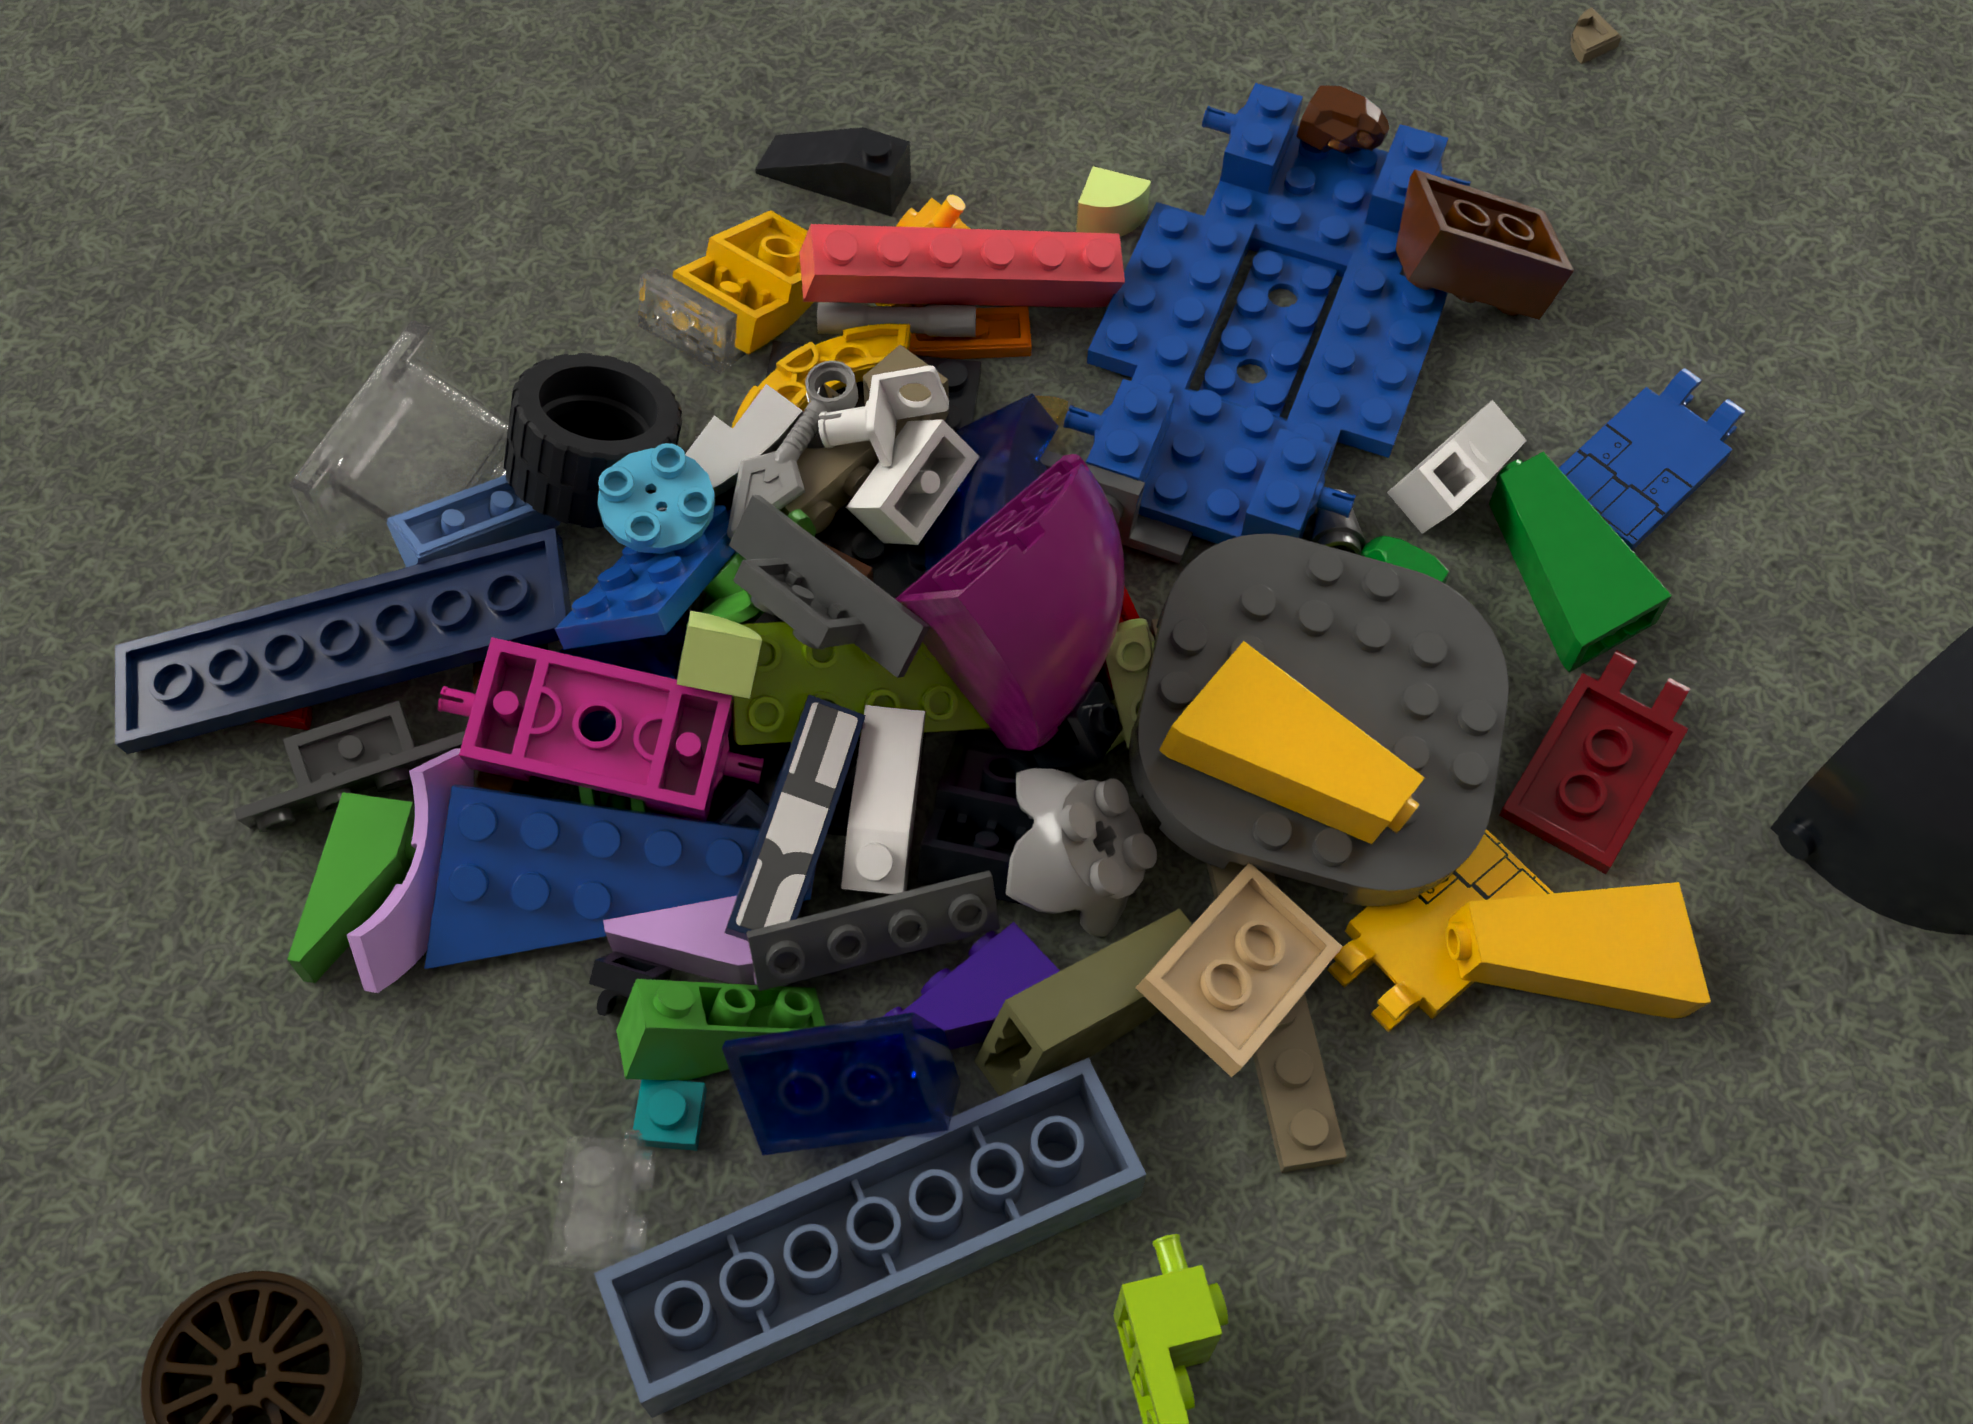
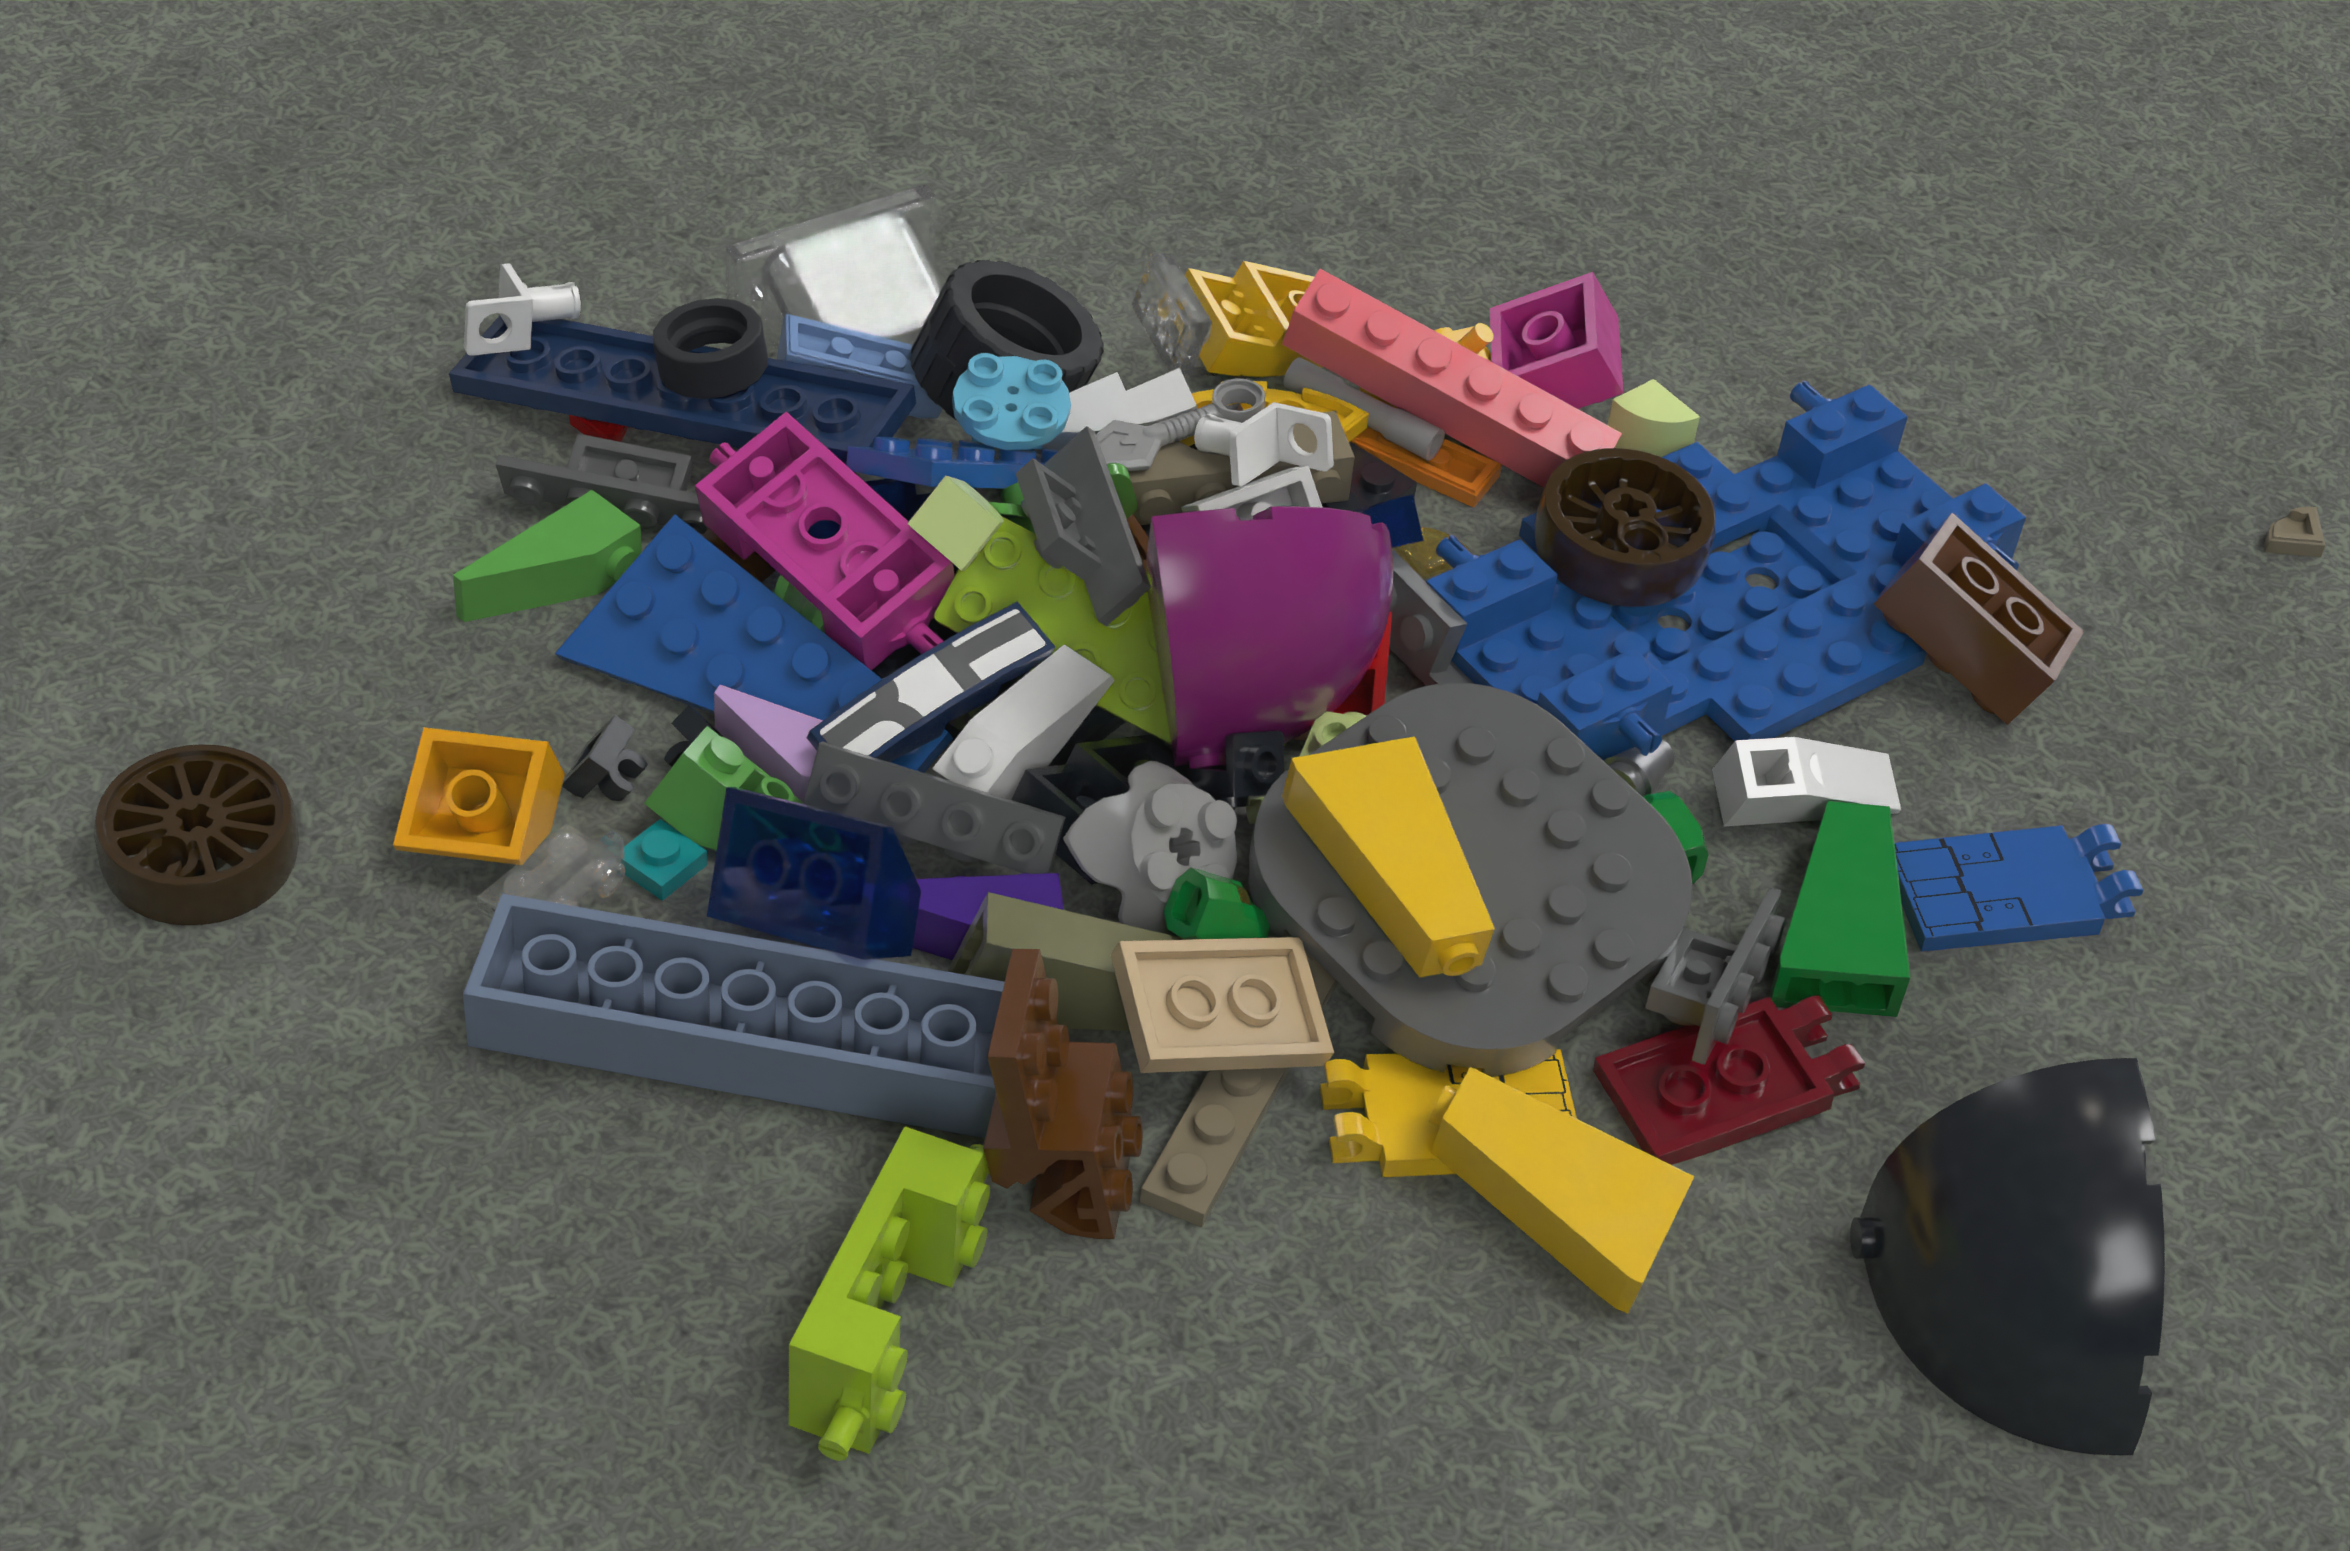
camera: 30 degrees right, 15 degrees down
(138, 647) = (518, 309): none -> white bracket
(326, 567) = (715, 372): none -> black tyre
(400, 928) = (551, 612): lavender tile -> none
(485, 1180) = (479, 797): none -> light orange slope
(548, 1053) = (603, 760): none -> black tile
(843, 164) = (1426, 276): black slope -> none
(1005, 176) = (1561, 341): none -> dark pink brick
(1170, 886) = (1212, 908): none -> green rock
(1185, 318) = (1604, 531): none -> dark brown piece
(1209, 1168) = (1058, 1110): none -> reddish brown piece
(1342, 121) = (1926, 452): reddish brown rock -> none
(1548, 689) = (1713, 980): none -> dark grey bracket

